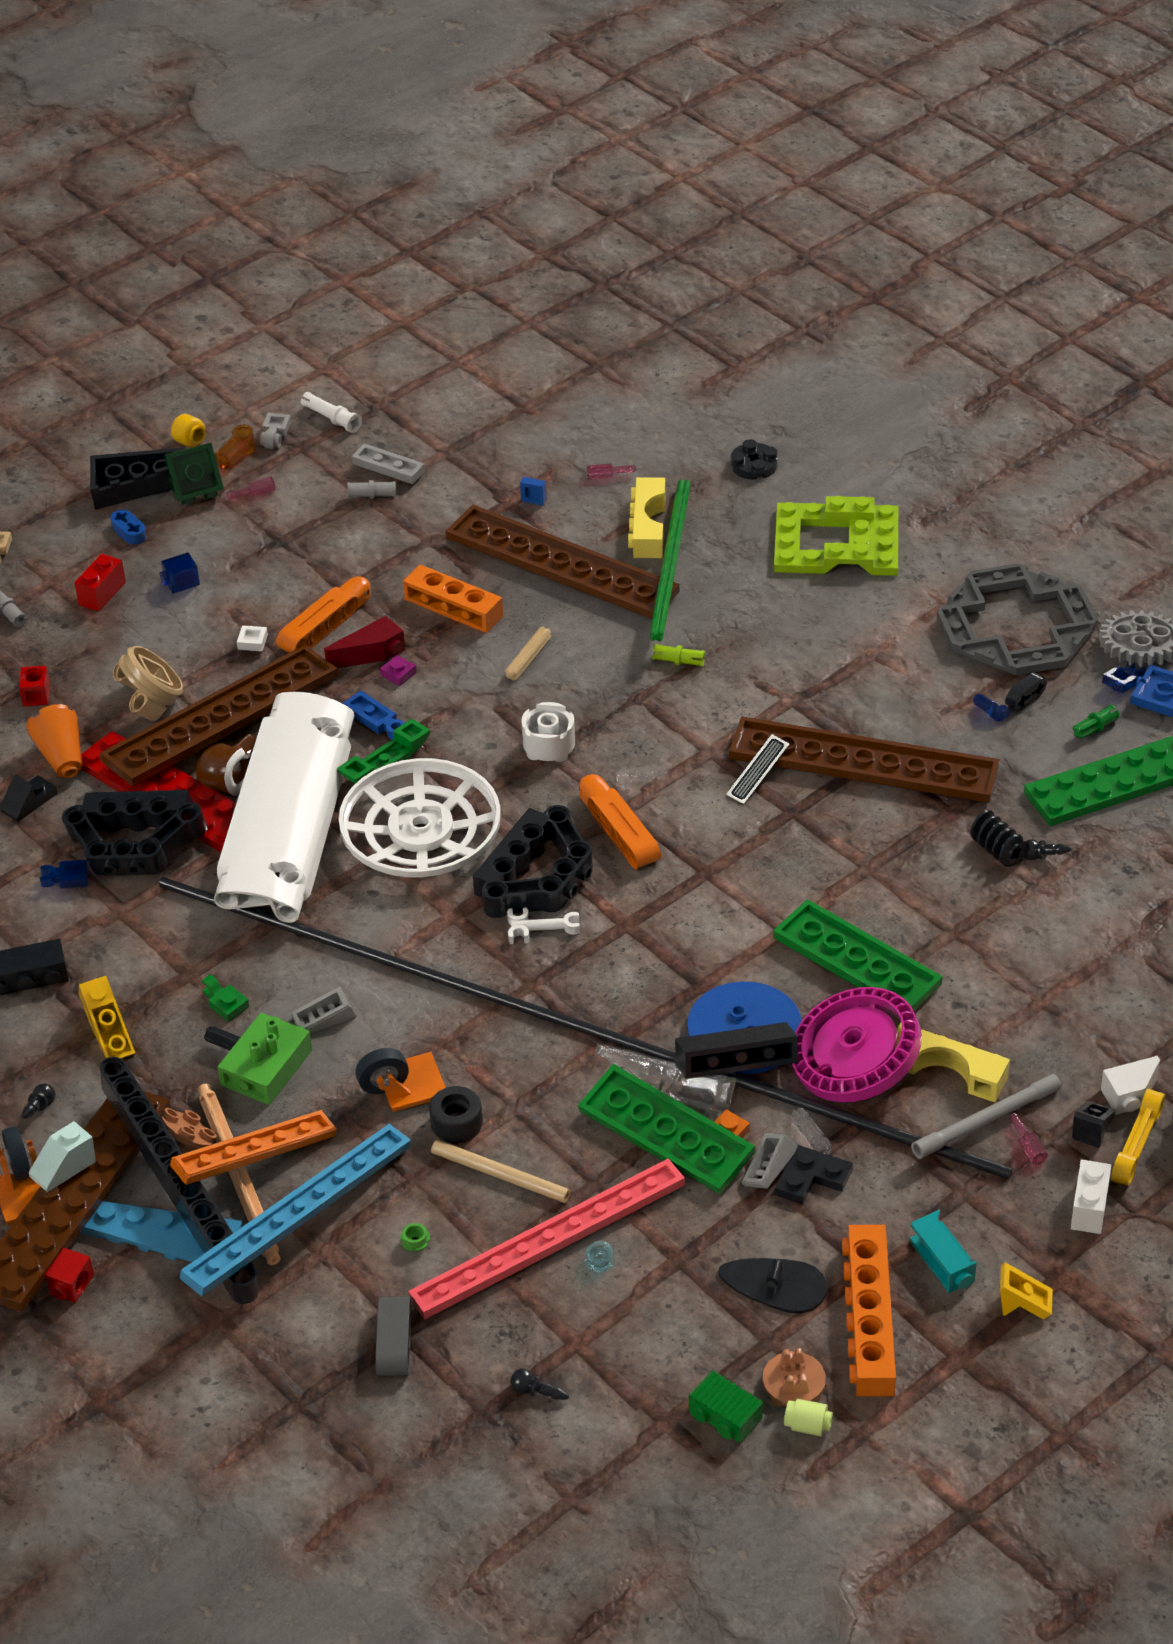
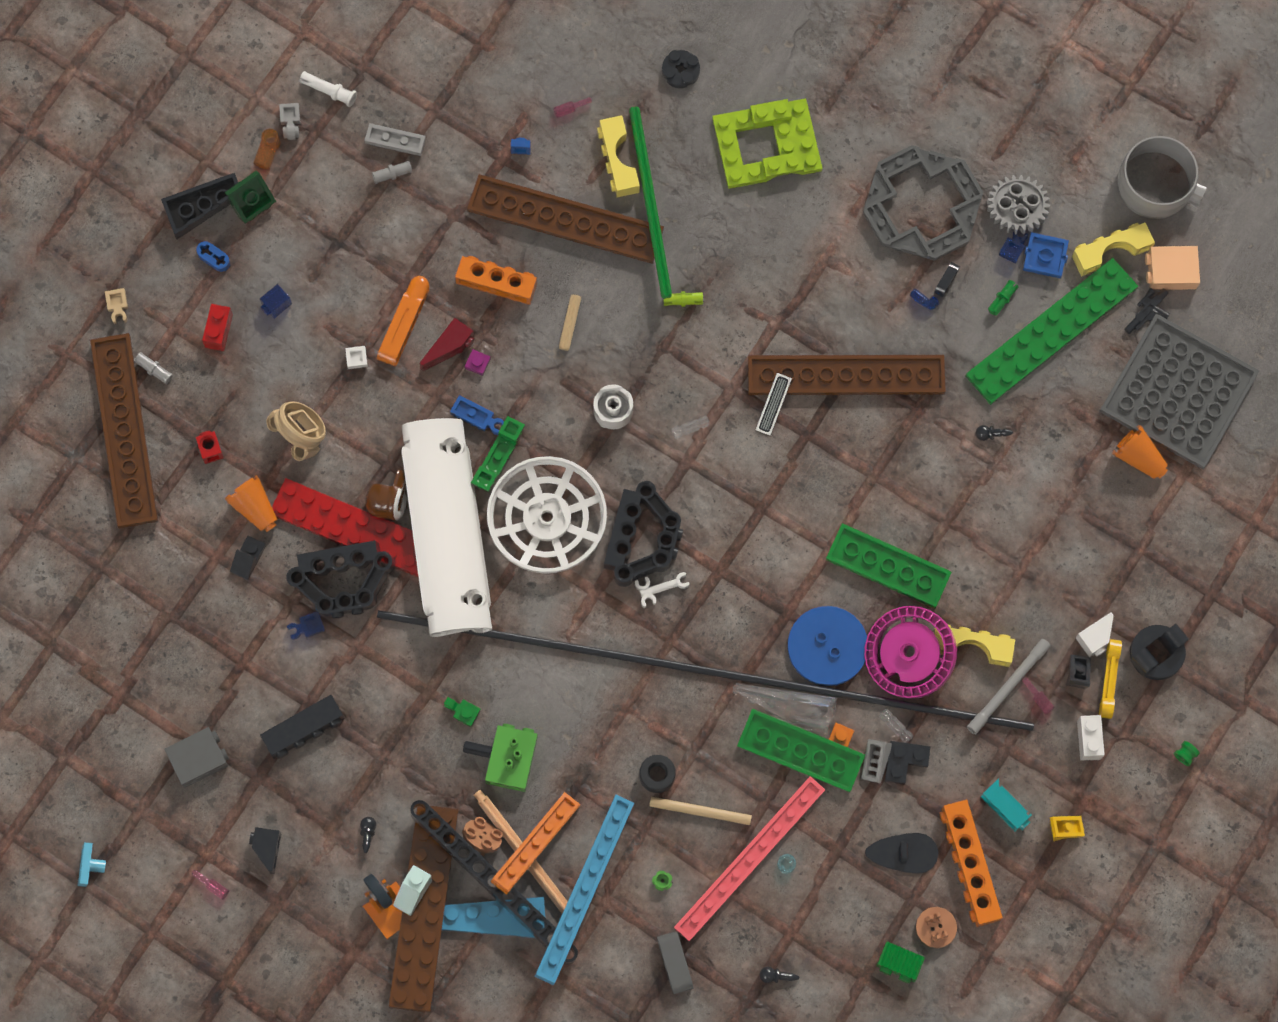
camera: 20 degrees left, 30 degrees up
(69, 1275) = (447, 972): red brick -> none
(105, 1018) = (388, 753): yellow slope -> none
(188, 430) = (222, 139): yellow head -> none
(216, 715) = (363, 447): reddish brown plate -> none
(254, 488) = (297, 190): clear pink axle -> none
(333, 1017) = (546, 706): light grey slope -> none
(403, 1080) = (614, 752): plate -> none
(619, 822) = (687, 479): orange piece -> none
(736, 1050) = (833, 681): black brick -> none
(808, 1417) = (953, 956): yellowish green brick -> none
(998, 839) = (960, 434): black piece -> none

